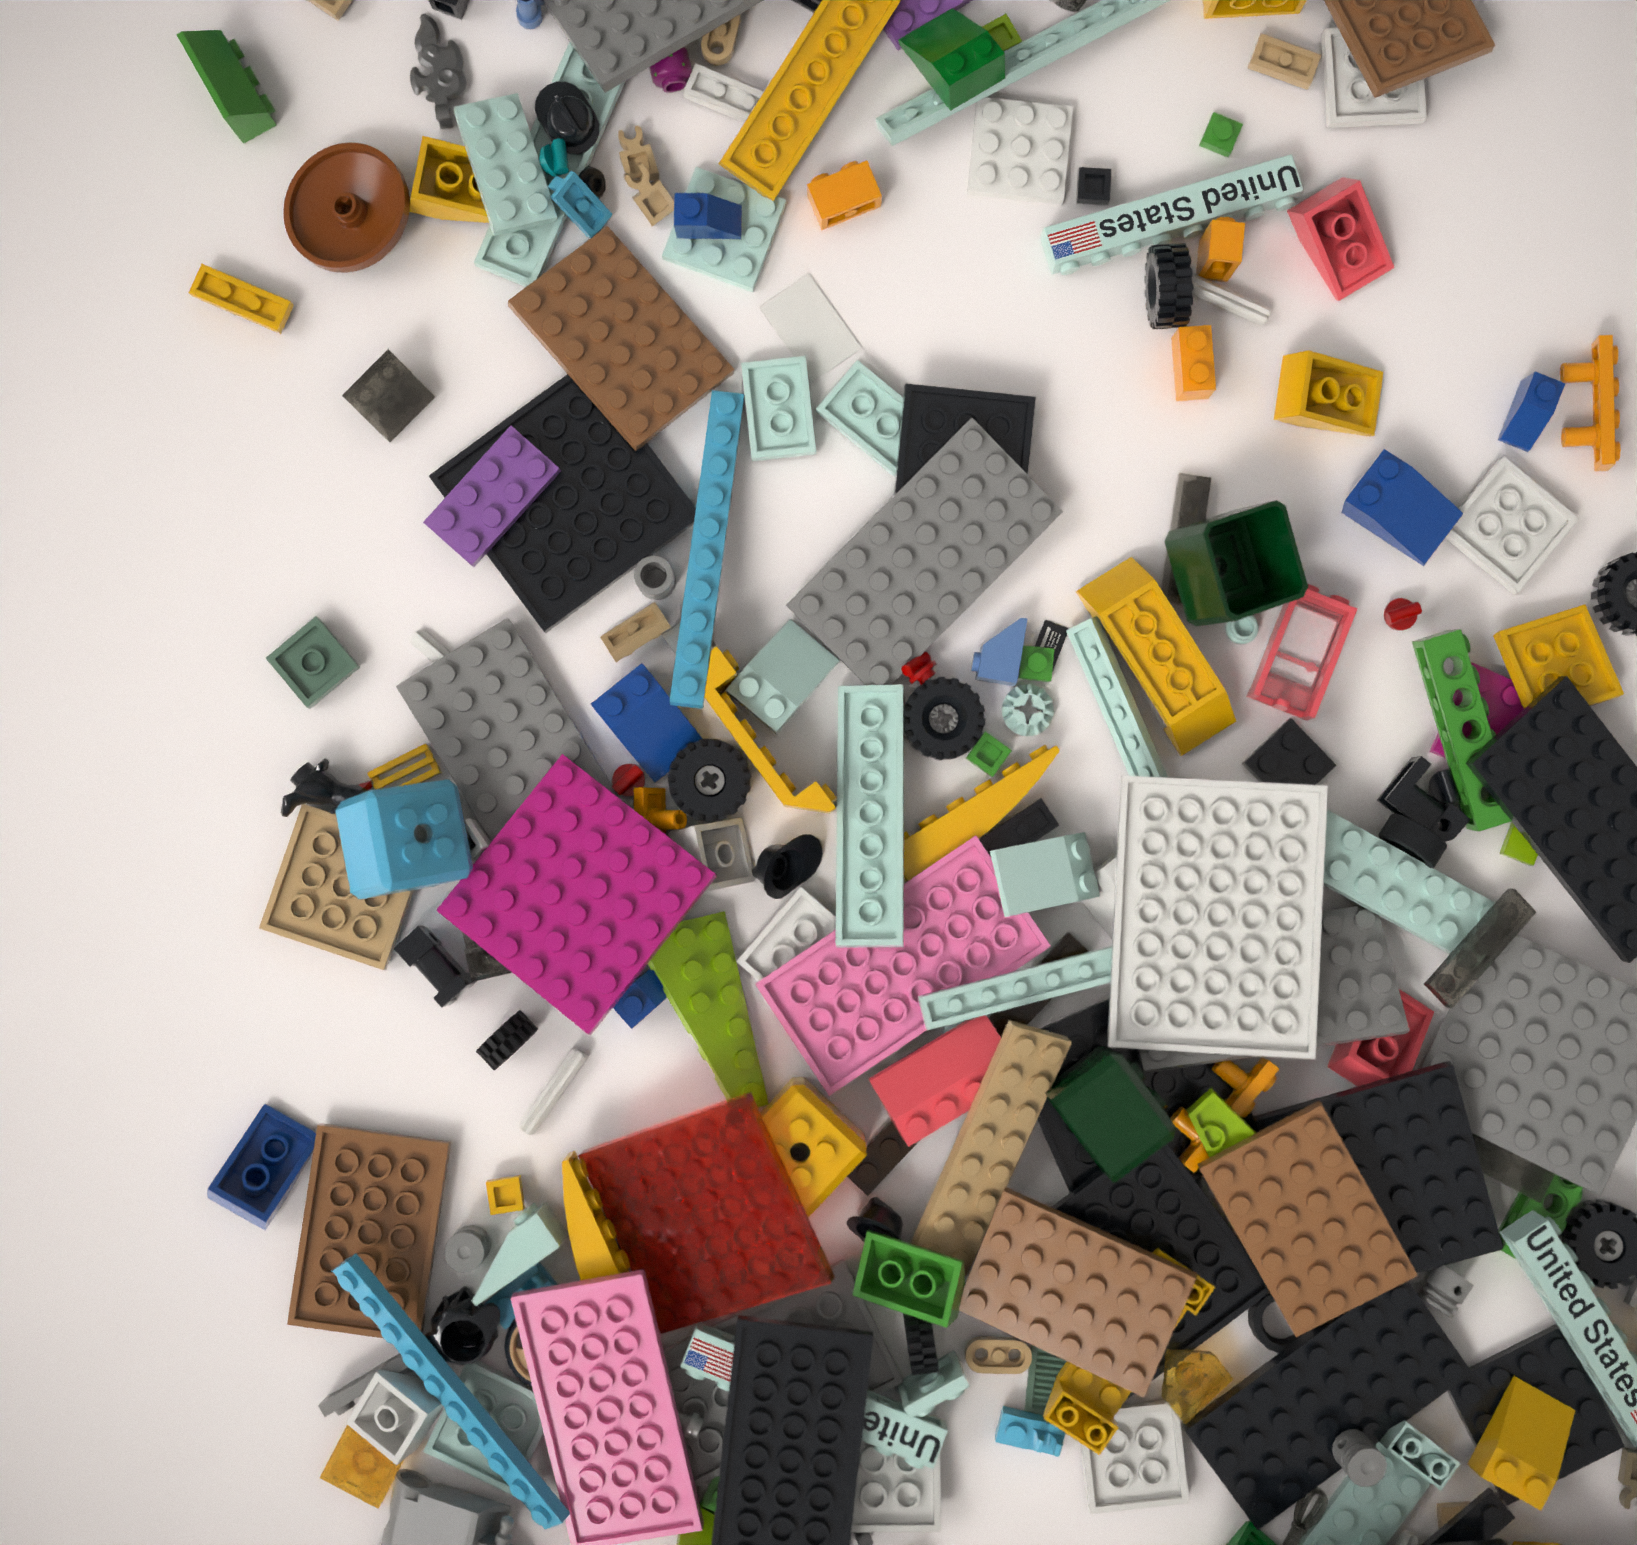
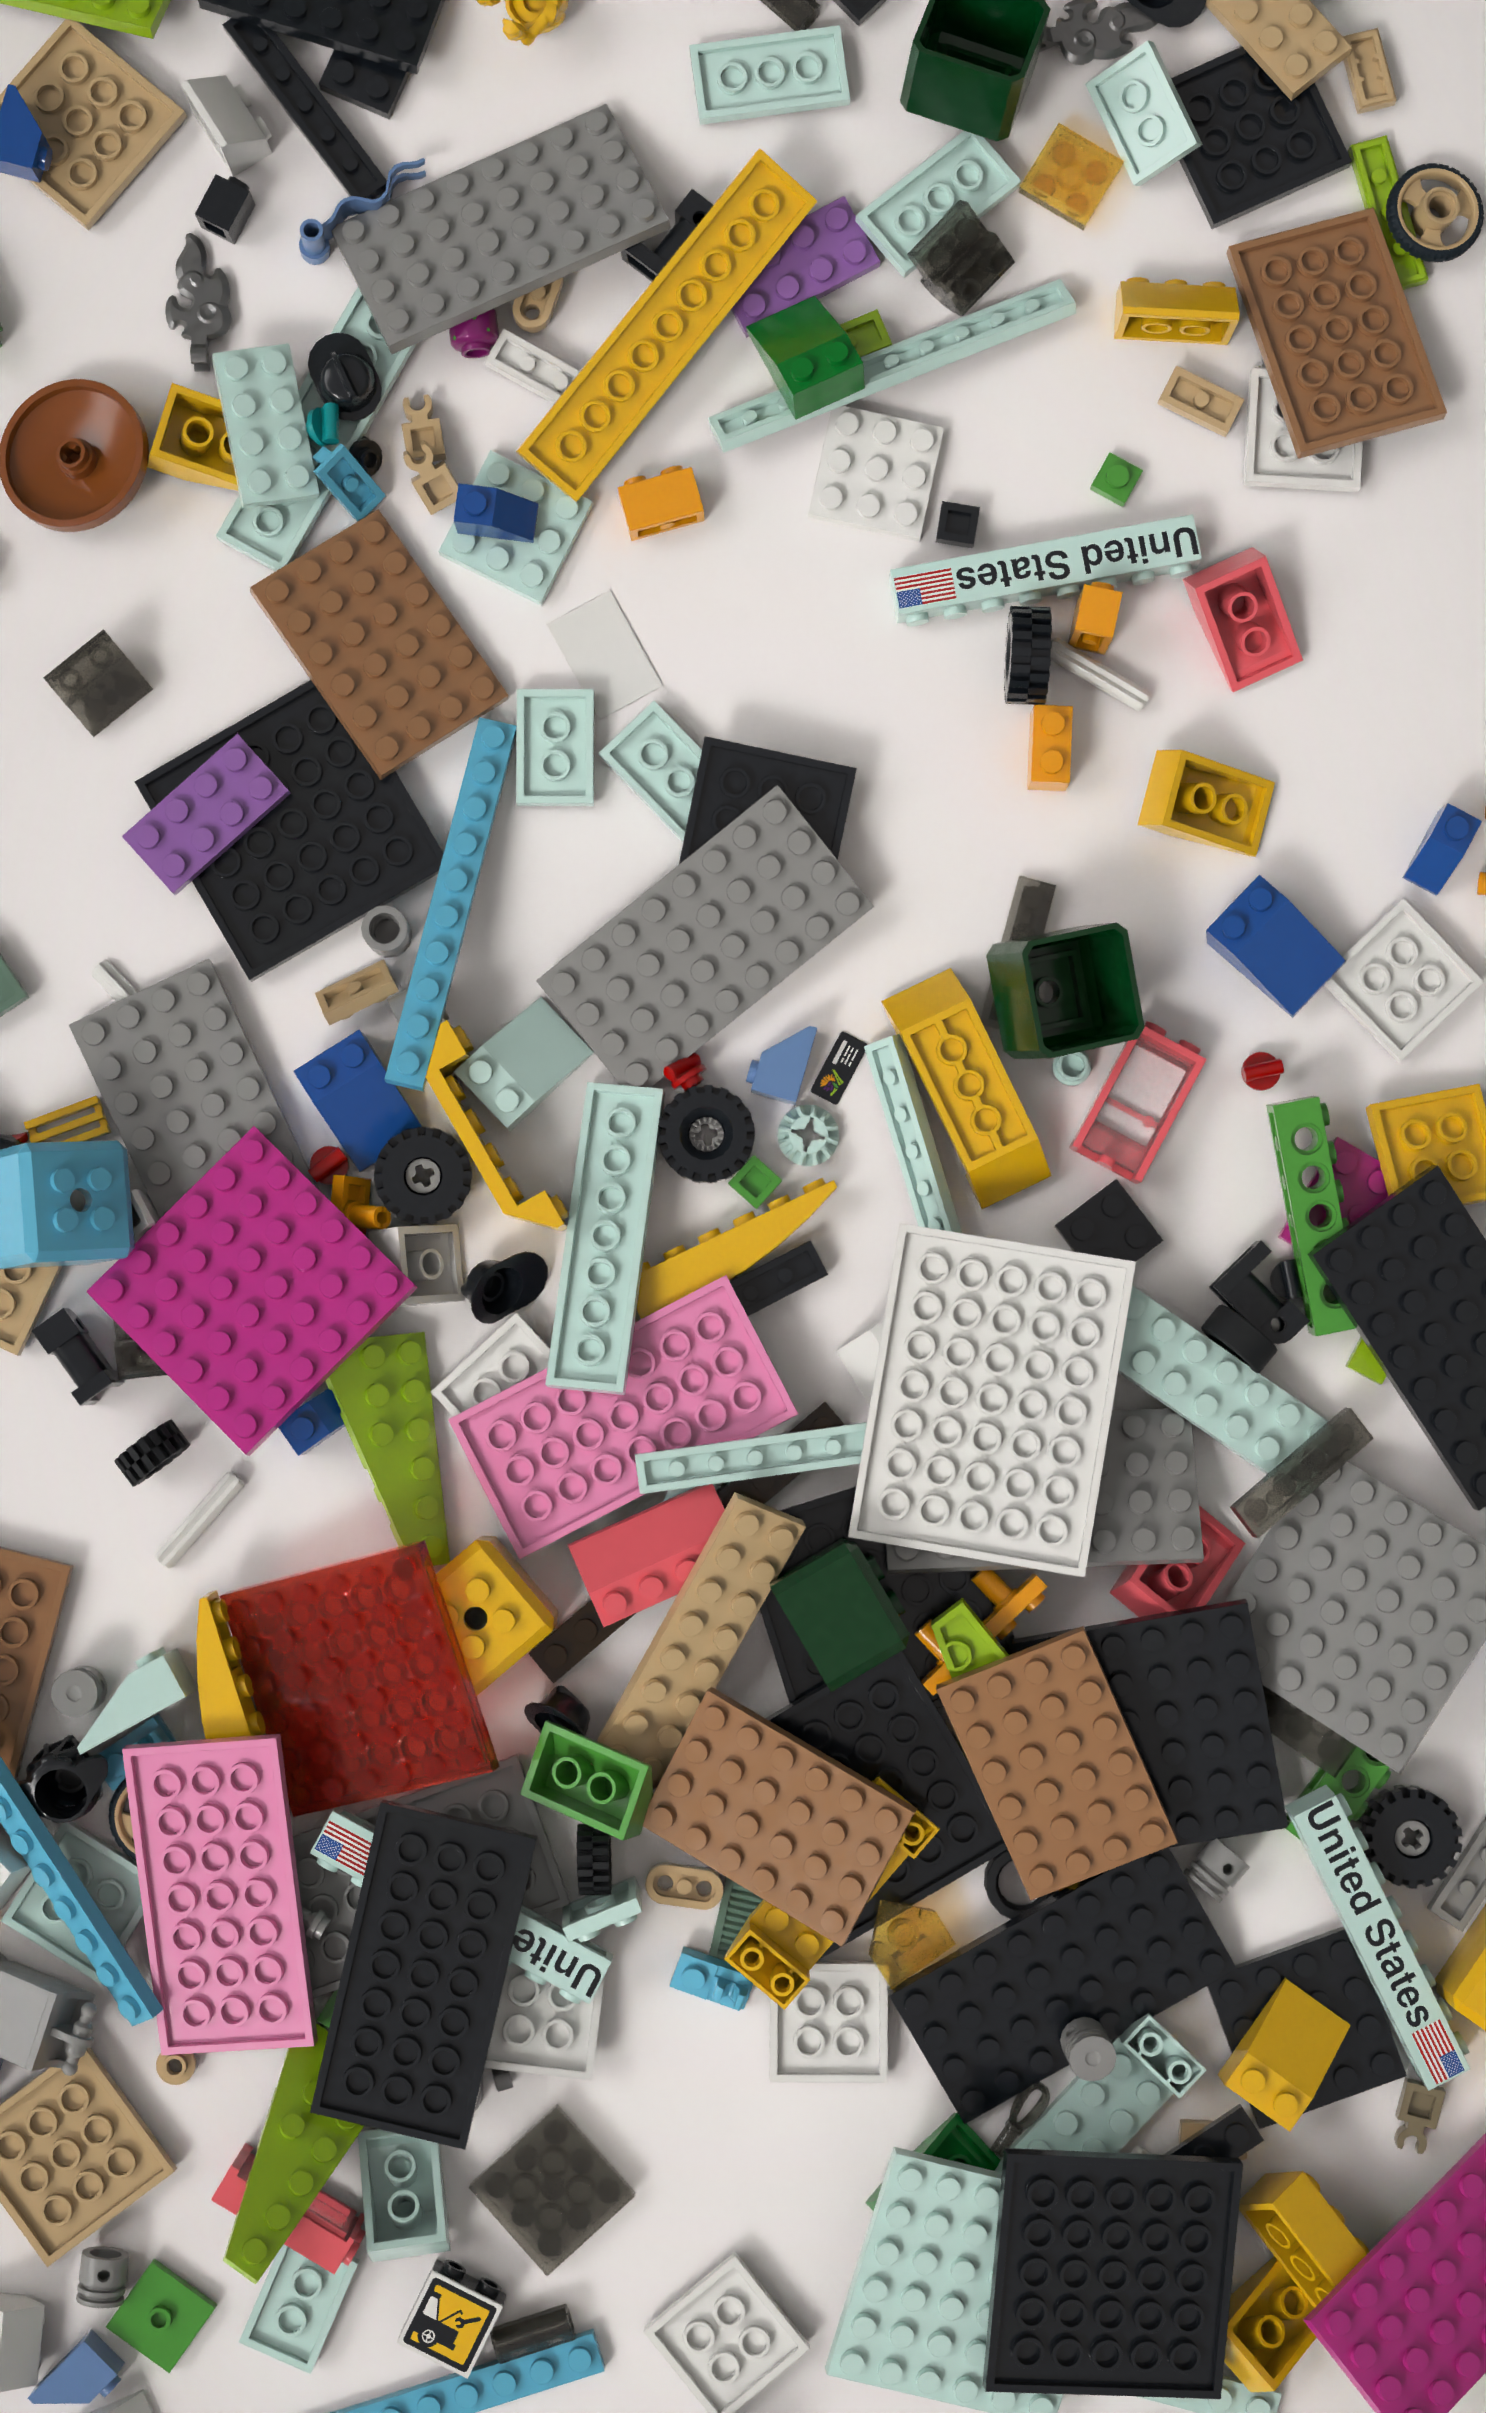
camera: 10 degrees right, 0 degrees up
(505, 1195) = (130, 1634): yellow plate -> none
(1036, 664) = (823, 1081): bright green plate -> none
(1044, 874) = (800, 1329): light aqua slope -> none

